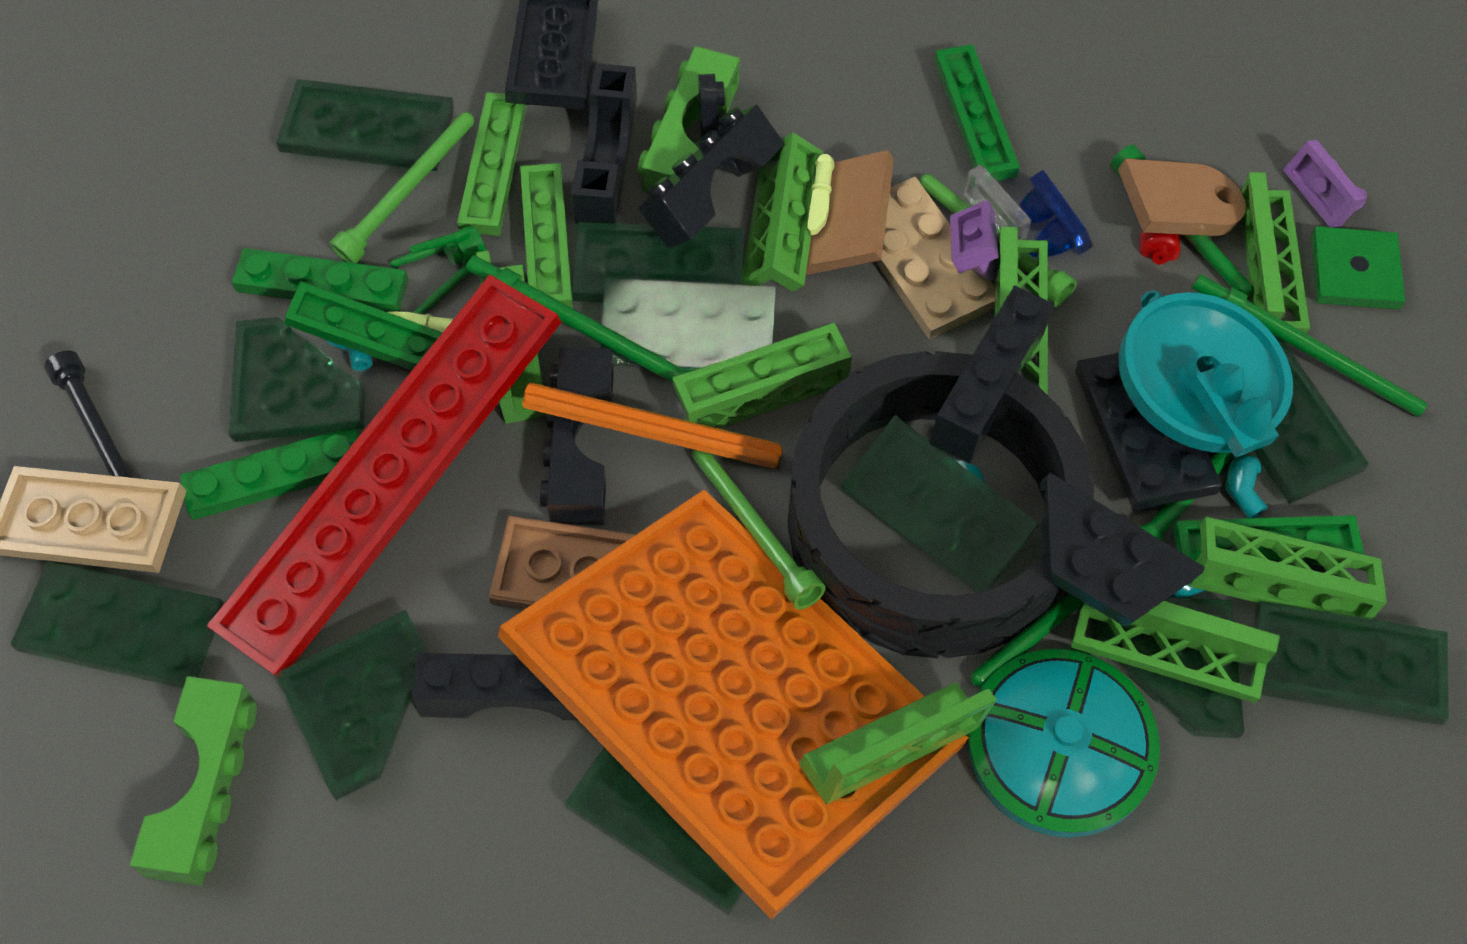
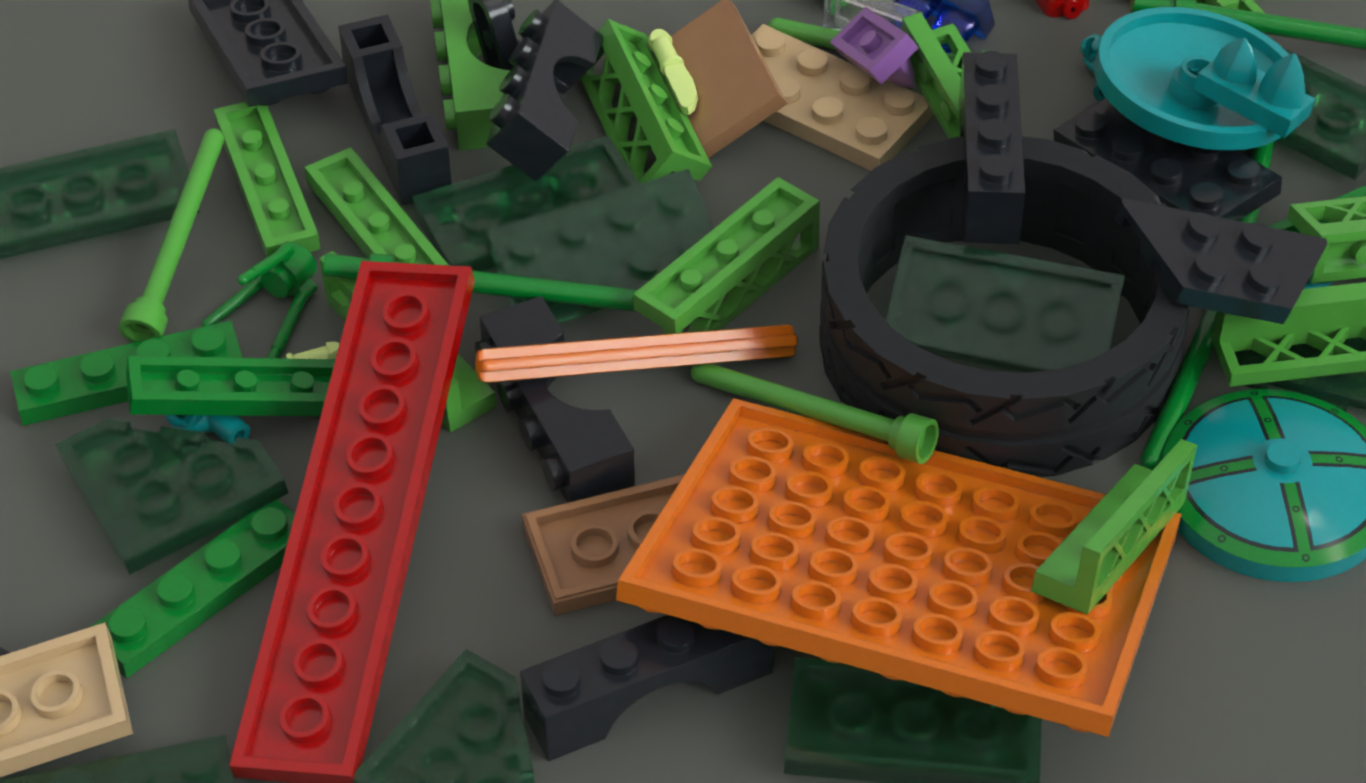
camera: 25 degrees left, 15 degrees down
(1240, 485) = (1297, 178): teal arm -> none

